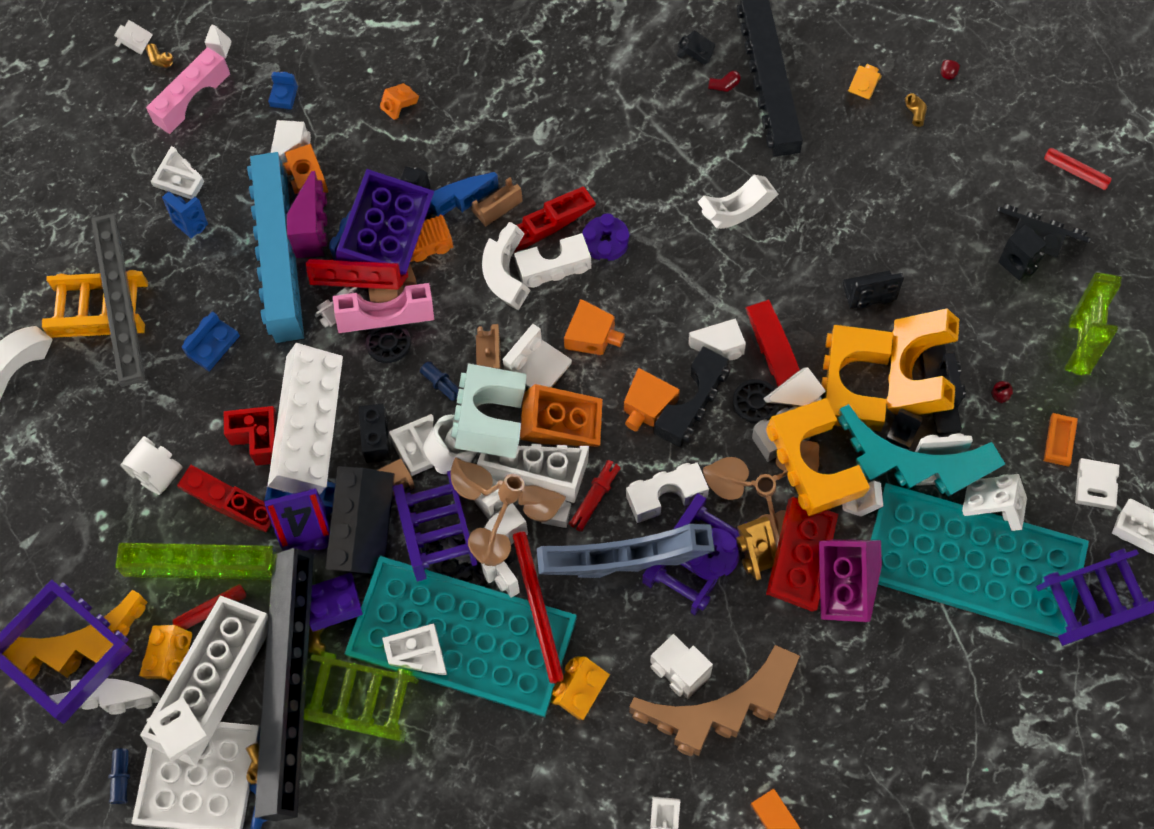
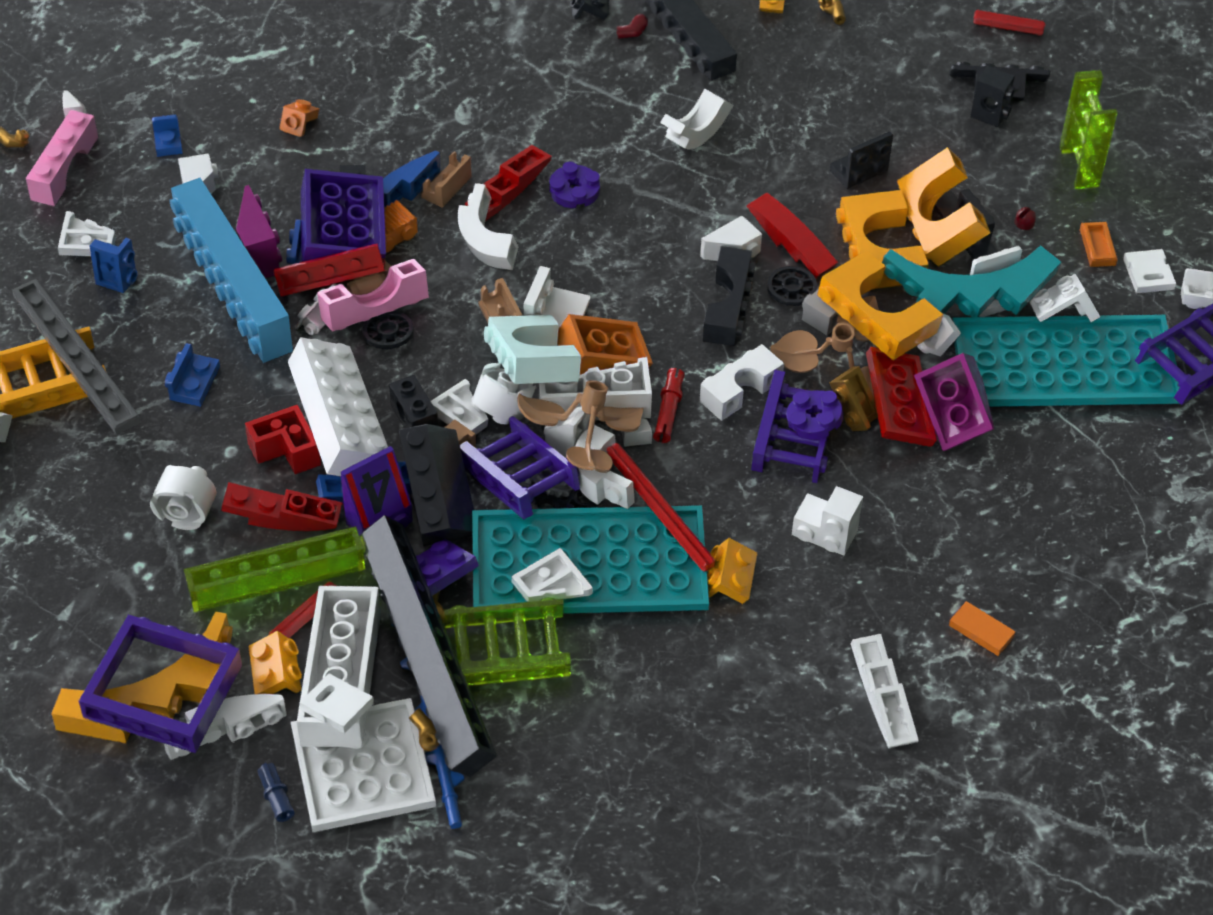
camera: 25 degrees left, 15 degrees down
(301, 161) = (227, 194): orange brick -> none
(440, 380) = (461, 348): dark blue axle -> none
(536, 270) = (549, 208): white arch -> none
(592, 330) = (599, 265): orange torso -> none
(627, 555) = (736, 435): sand blue arch -> none
(647, 399) = (685, 308): orange torso -> none
(693, 723) = (888, 552): medium nougat arch -> none
(797, 390) = (833, 254): white slope -> none
(903, 429) = (949, 262): black bracket -> none

